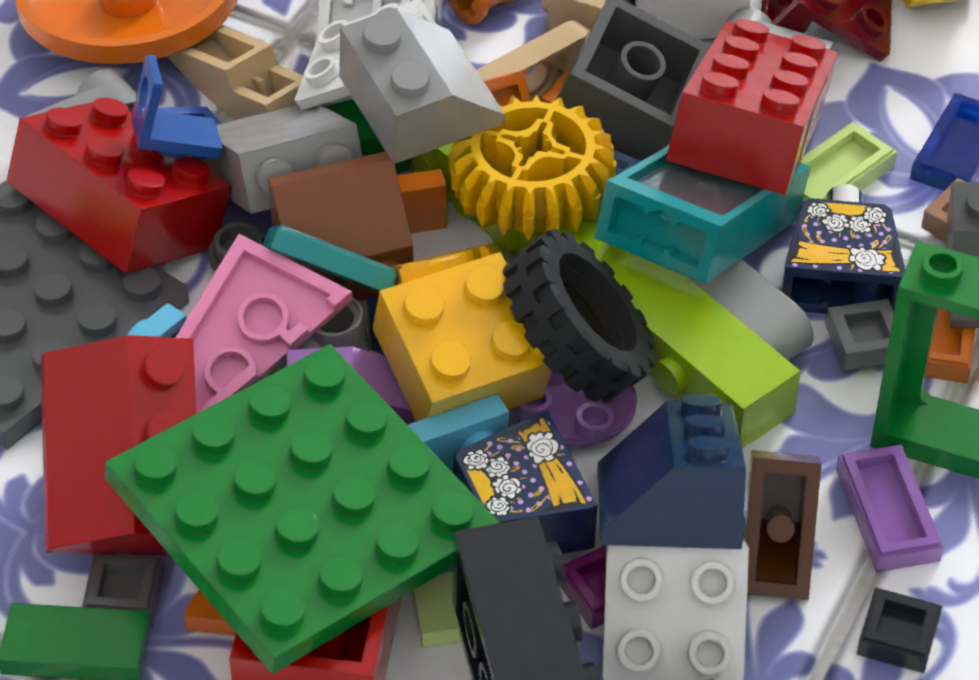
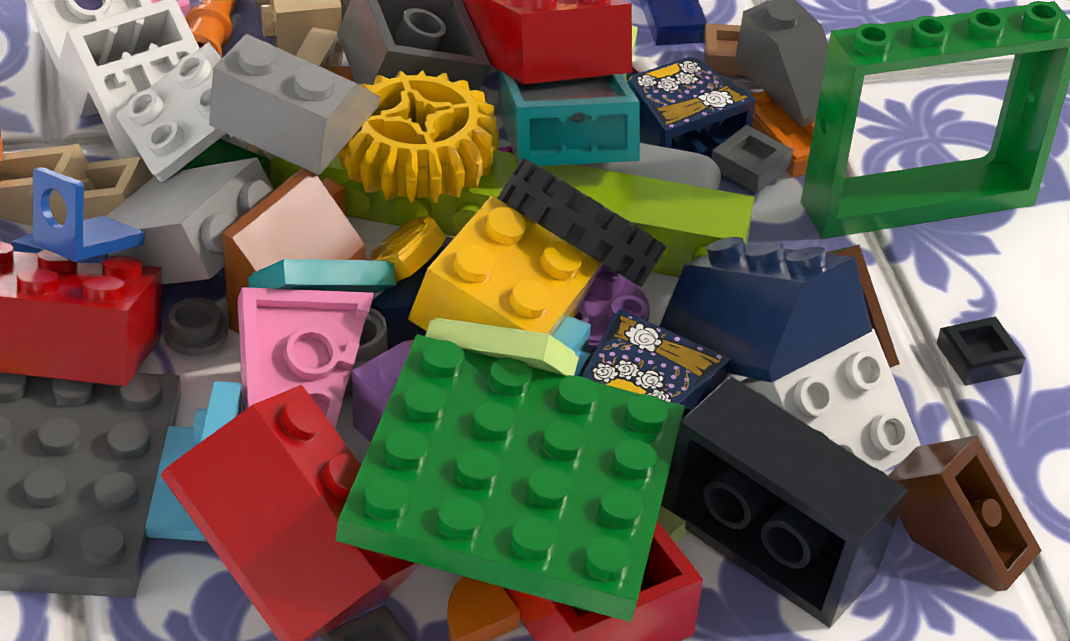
camera: 40 degrees left, 5 degrees down
(393, 393) = (530, 347): none -> yellowish green tile
(889, 508) = (897, 275): medium lavender tile -> none

